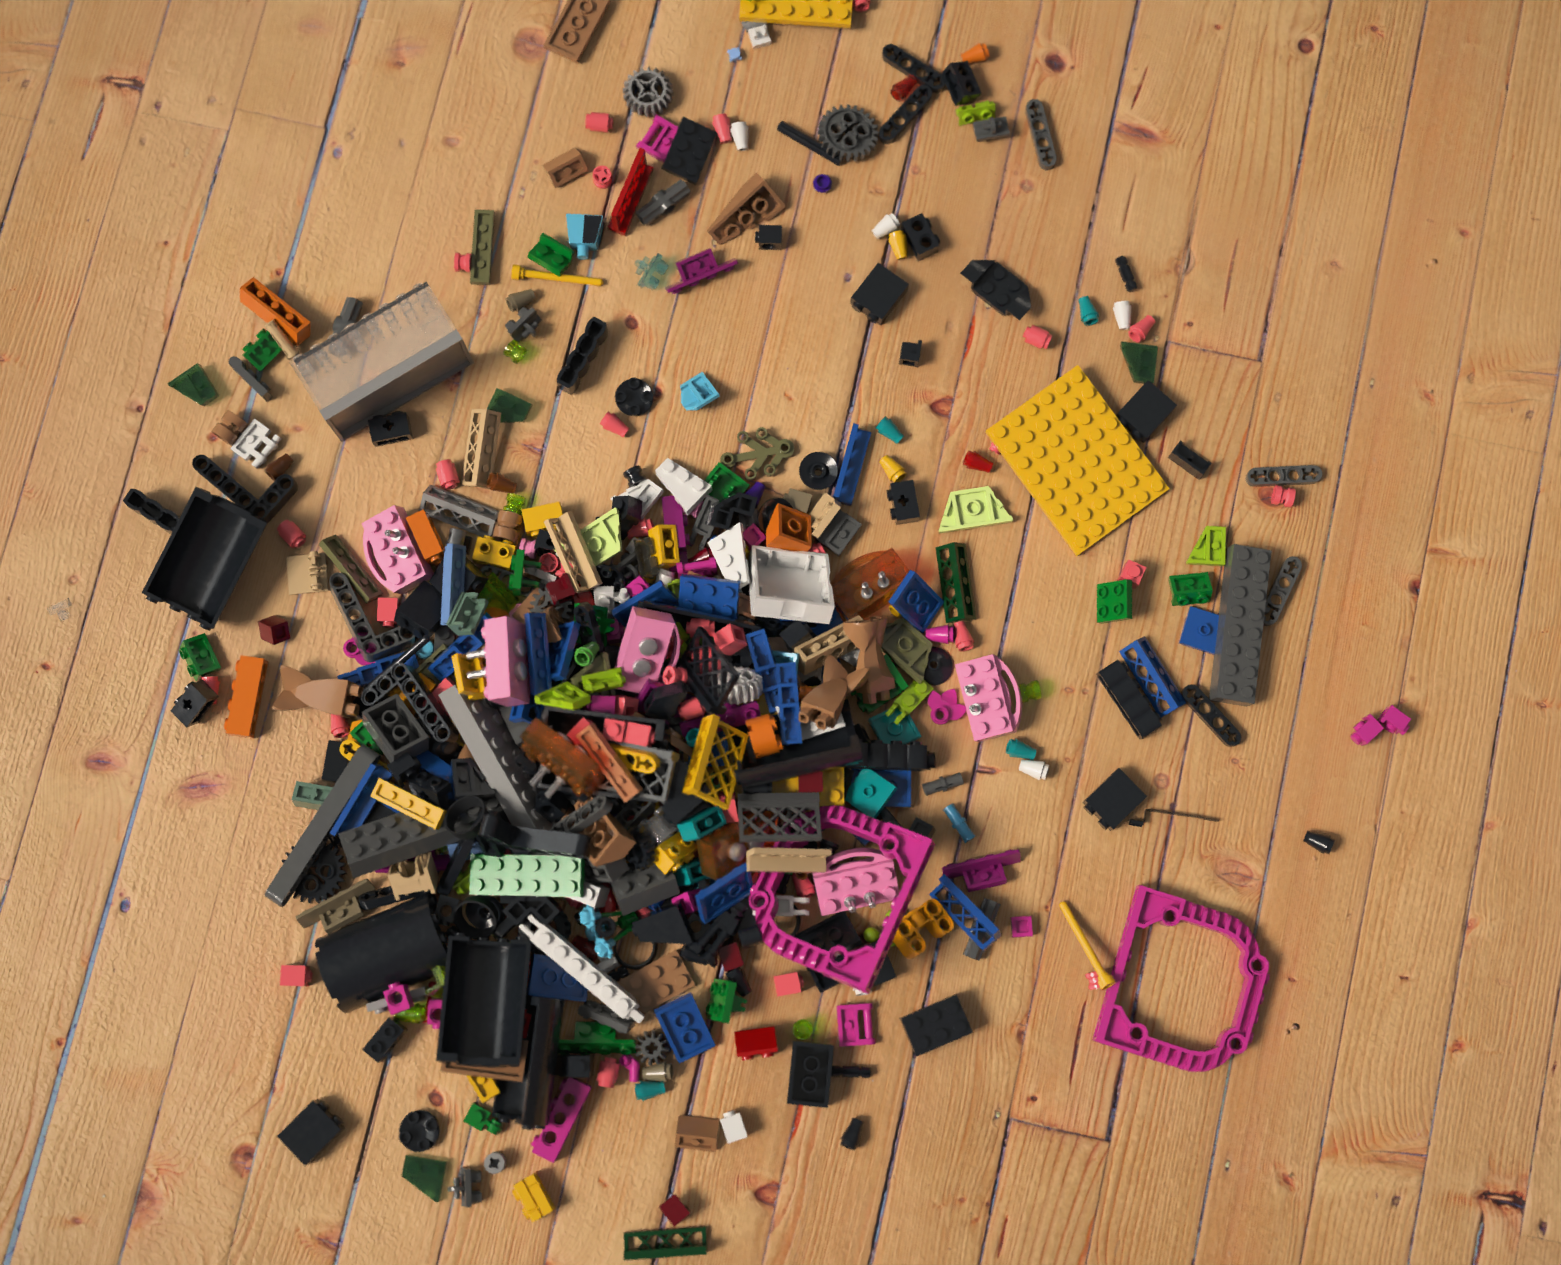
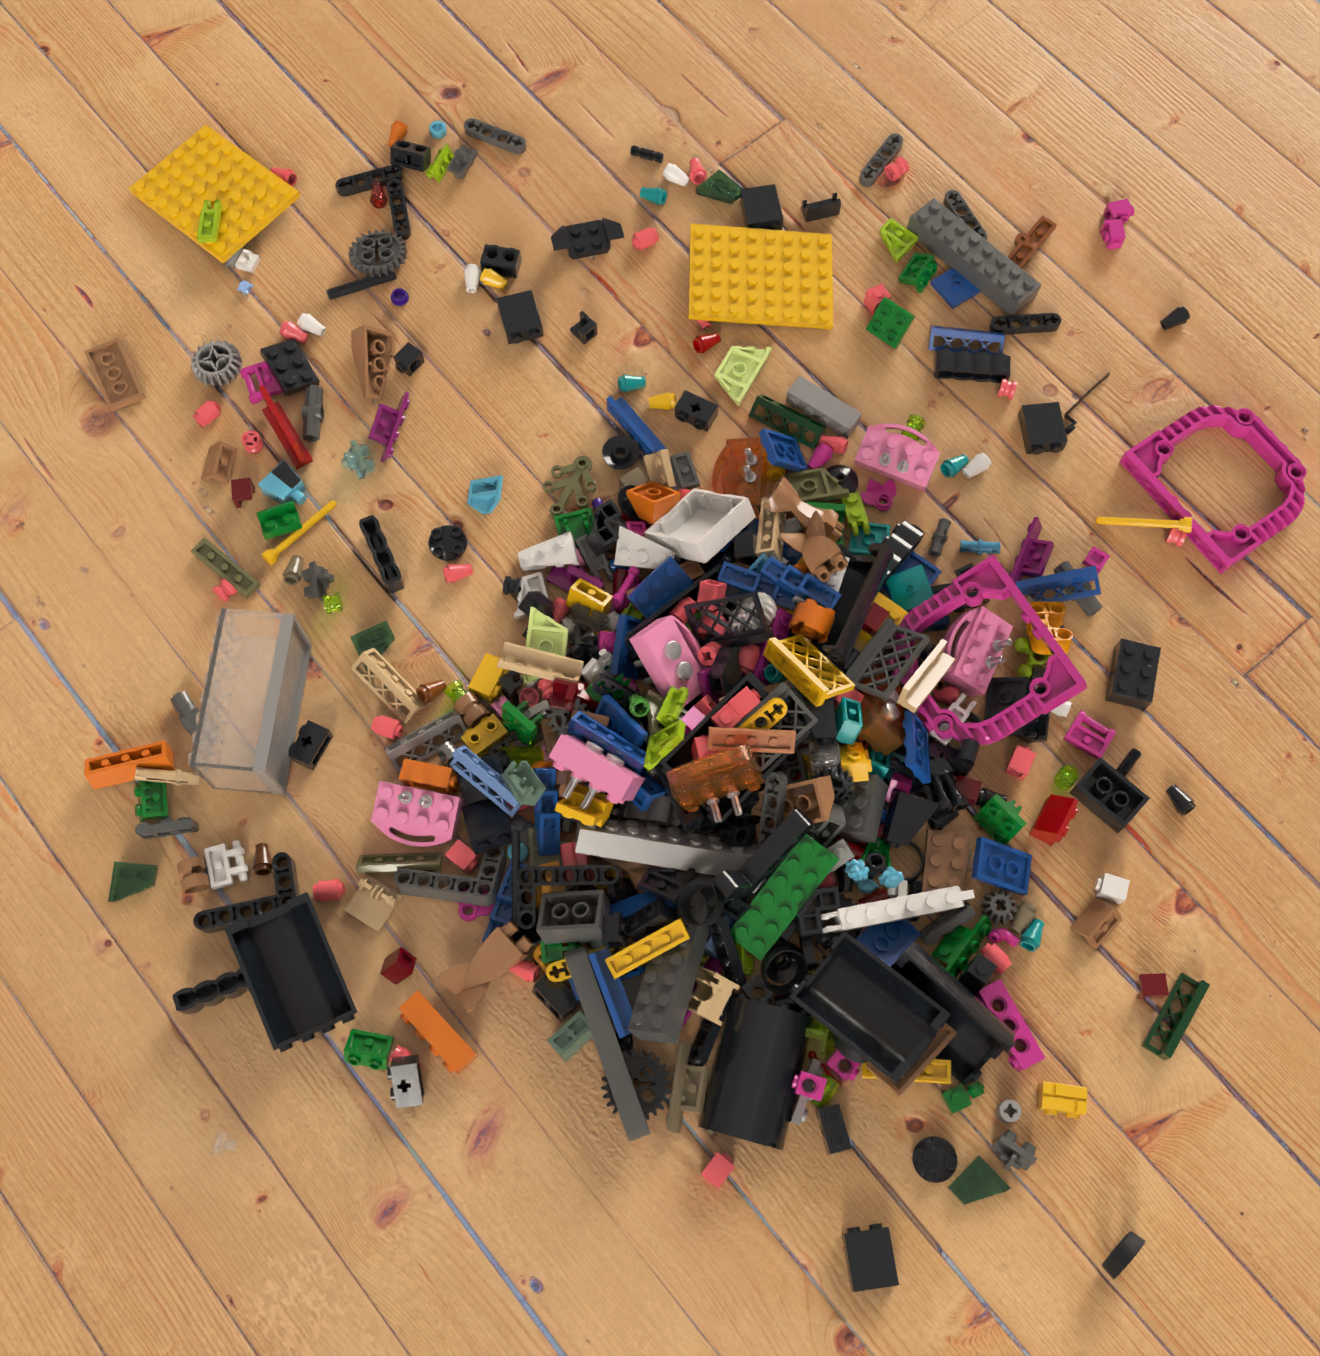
camera: 50 degrees left, 10 degrees down
(553, 205) = (242, 490): none -> dark red panel
(990, 603) = (823, 407): none -> light grey brick
(1009, 82) = (438, 129): none -> medium azure tile
(1130, 744) = (1007, 389): none -> coral wheel
(1297, 664) = (1029, 243): none -> dark orange hinge

